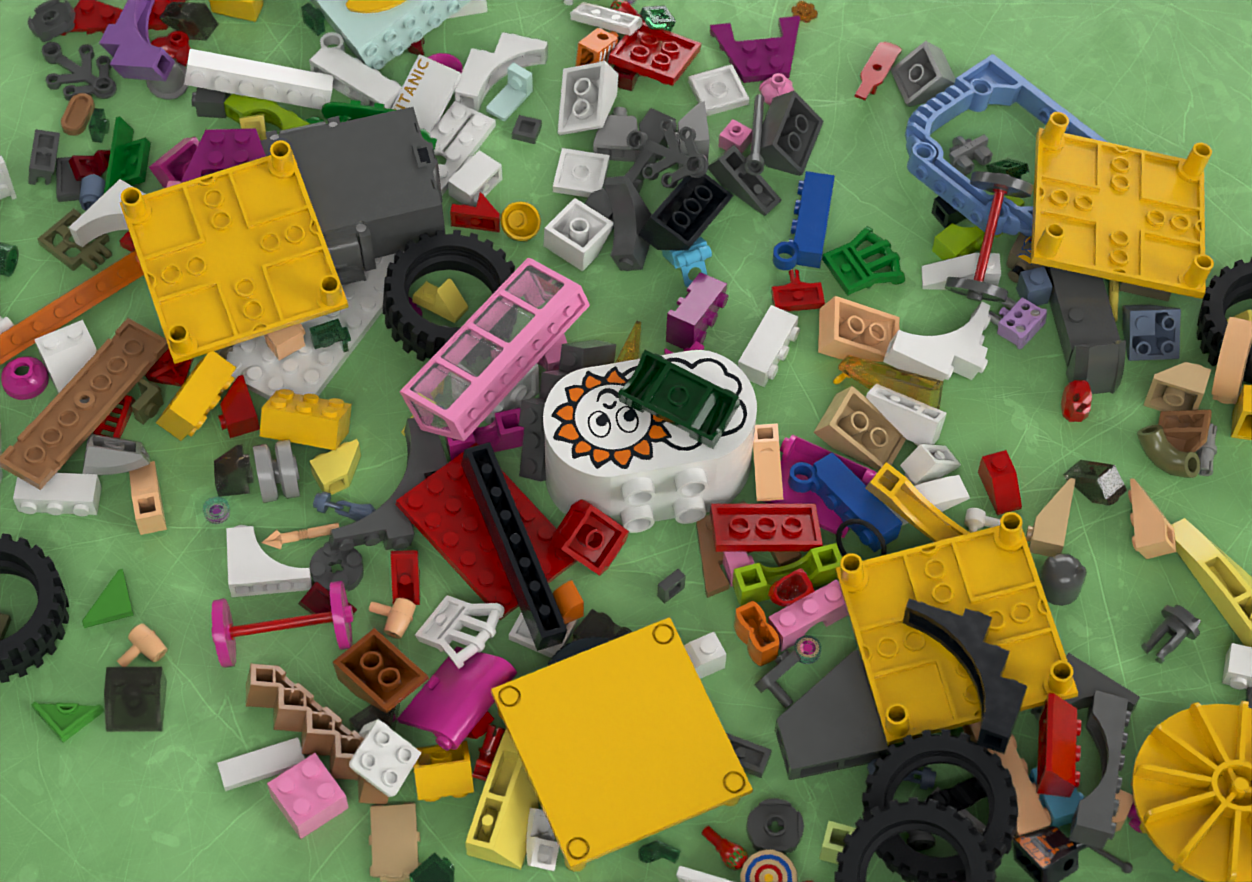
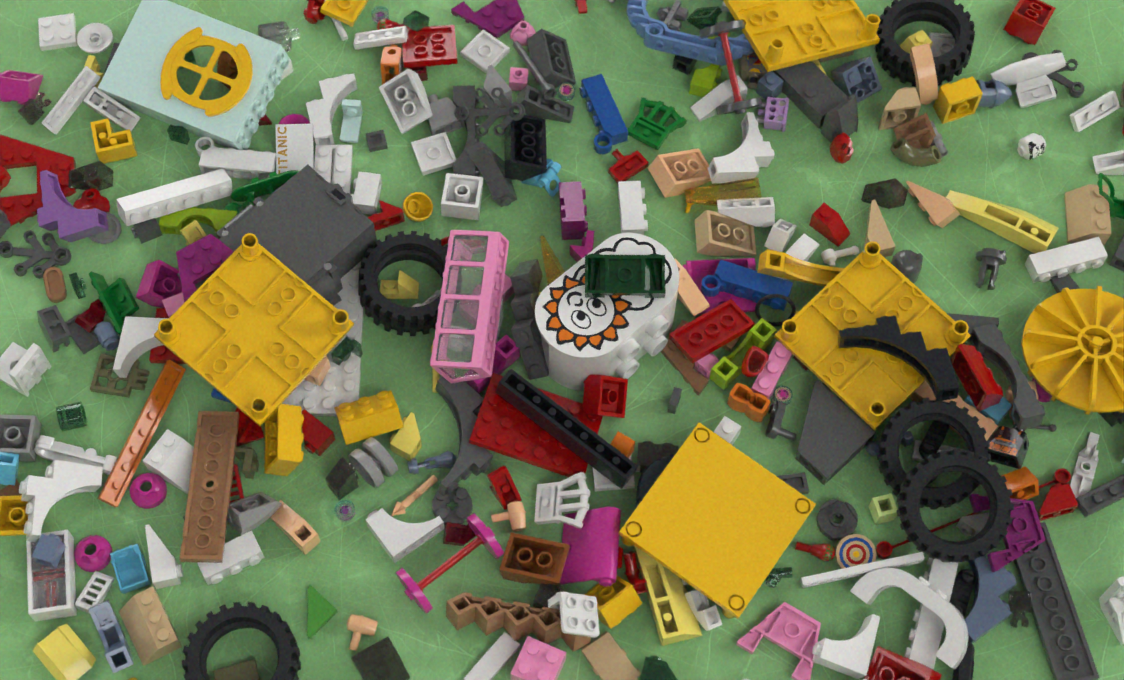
camera: 30 degrees left, 5 degrees up
(783, 178) = (566, 91): none -> tile

